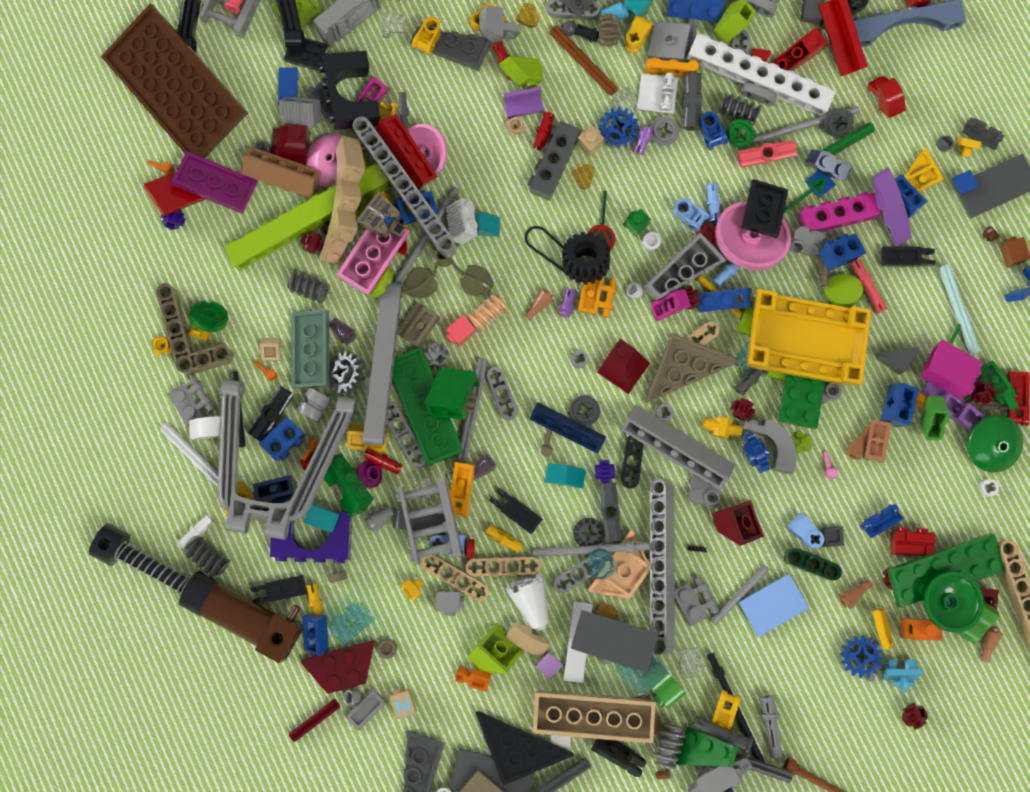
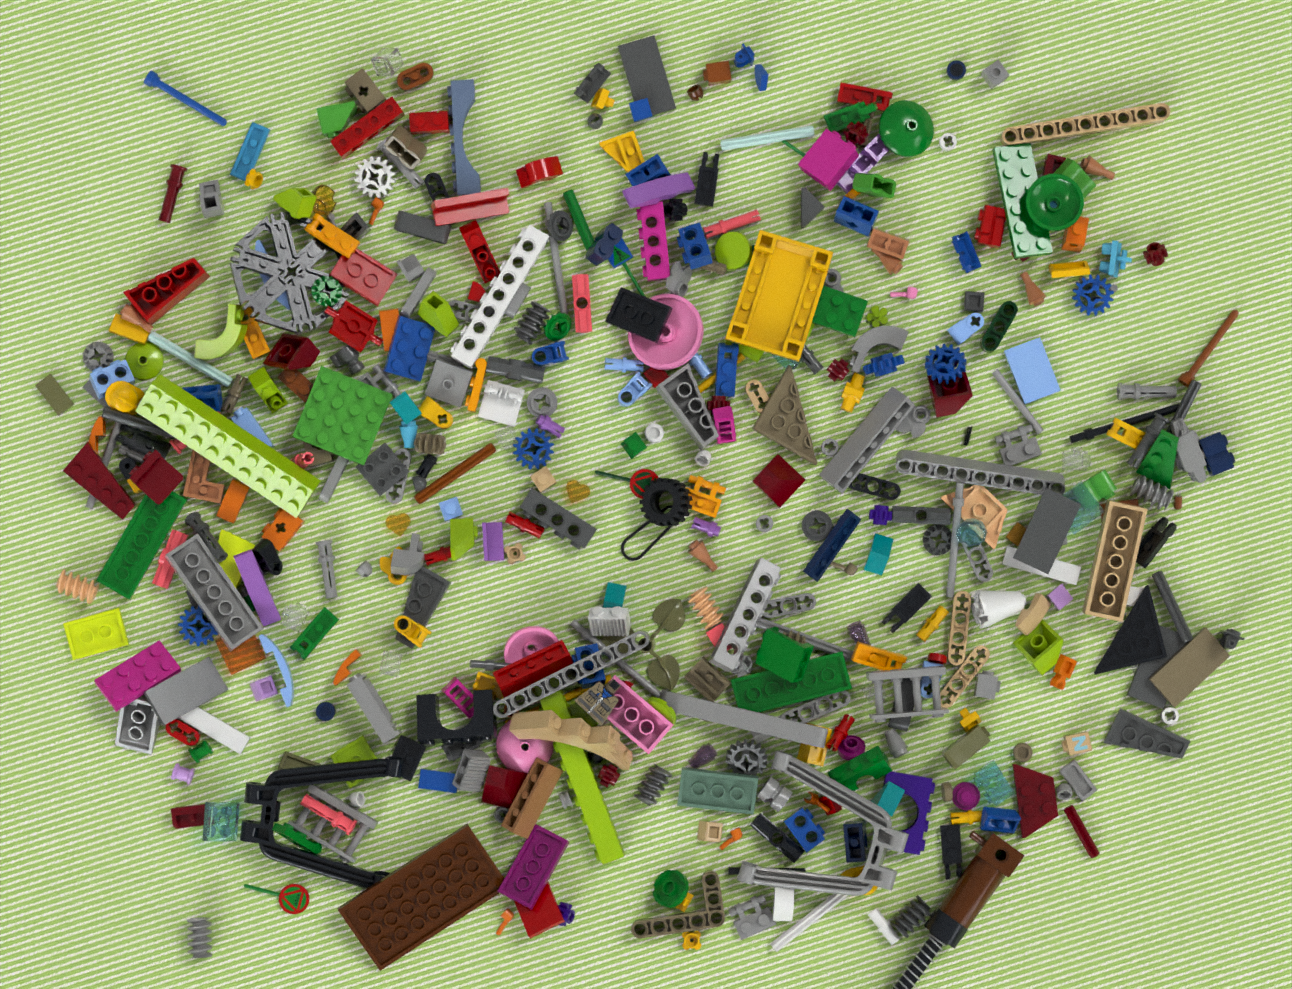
camera: 85 degrees left, 5 degrees up
(257, 15) = (356, 799): none -> white hinge
(284, 205) = (565, 799): none -> light grey bush
(335, 596) = (965, 795): none -> magenta plate
(384, 589) = (966, 746): none -> olive slope
(533, 362) = (720, 656): none -> light grey brick
(549, 61) = (450, 508): none -> light blue plate
(766, 515) = (944, 366): none -> blue gear
(873, 229) = (675, 209): none -> black gear

